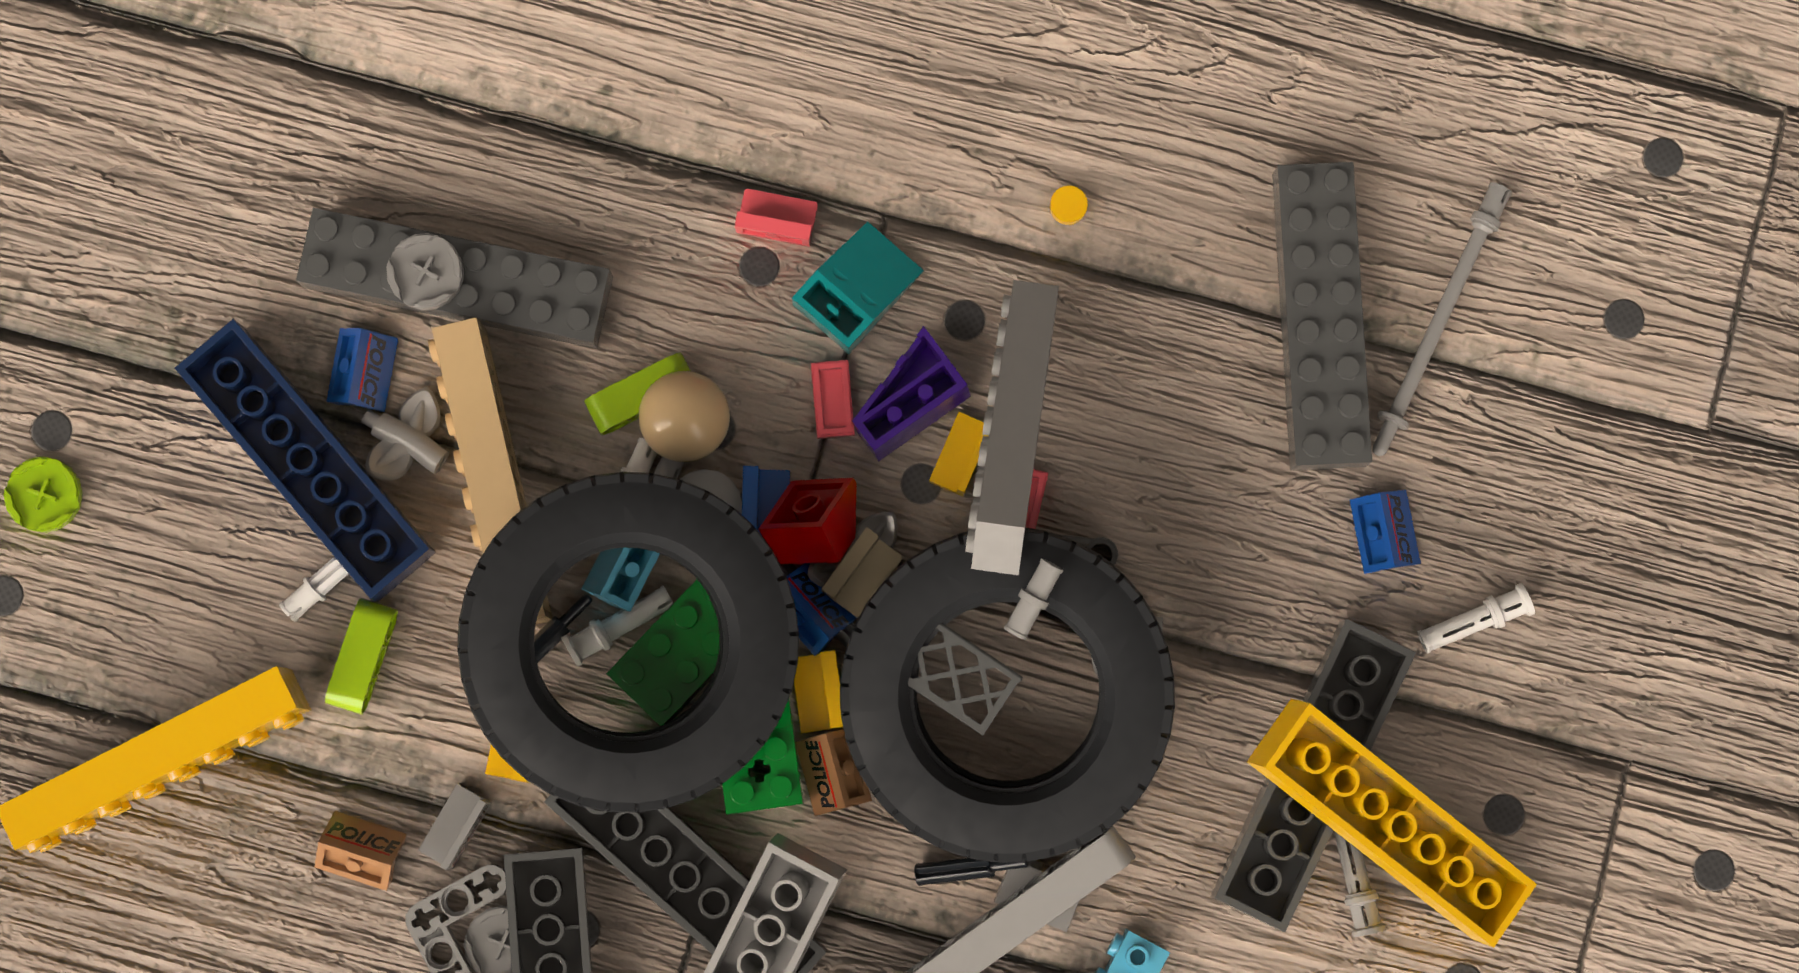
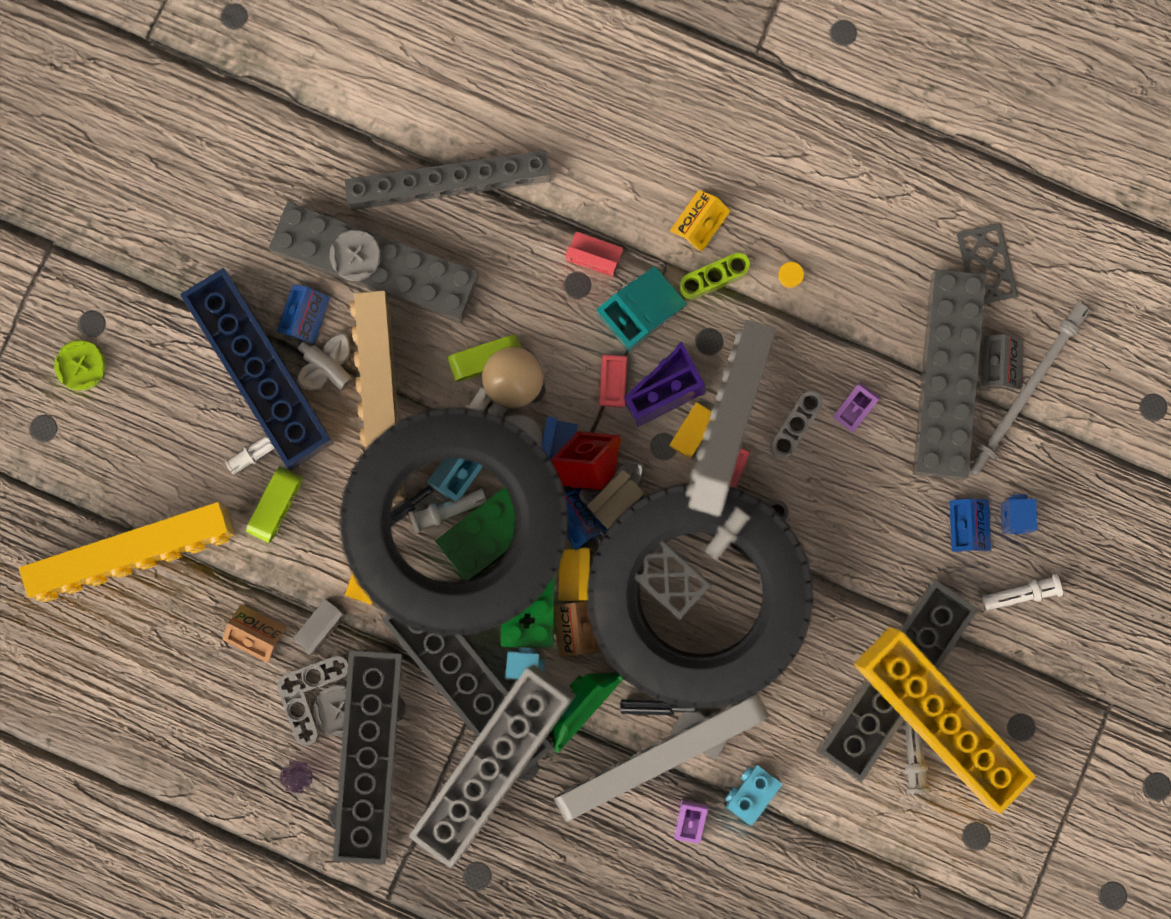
camera: 15 degrees right, 0 degrees up
(544, 141) = (447, 180): none -> dark grey brick
(758, 832) = (520, 661): none -> medium azure brick
(867, 866) = (590, 694): none -> green wedge
(925, 144) = (700, 219): none -> yellow panel
(966, 207) = (722, 266): none -> lime beam
(1119, 407) = (805, 416): none -> light grey beam
(1193, 383) = (856, 407): none -> medium lavender slope
(1368, 121) = (1001, 248): none -> dark grey window
(1395, 285) = (1002, 361): none -> dark grey panel
(1454, 505) = (1019, 515): none -> blue brick

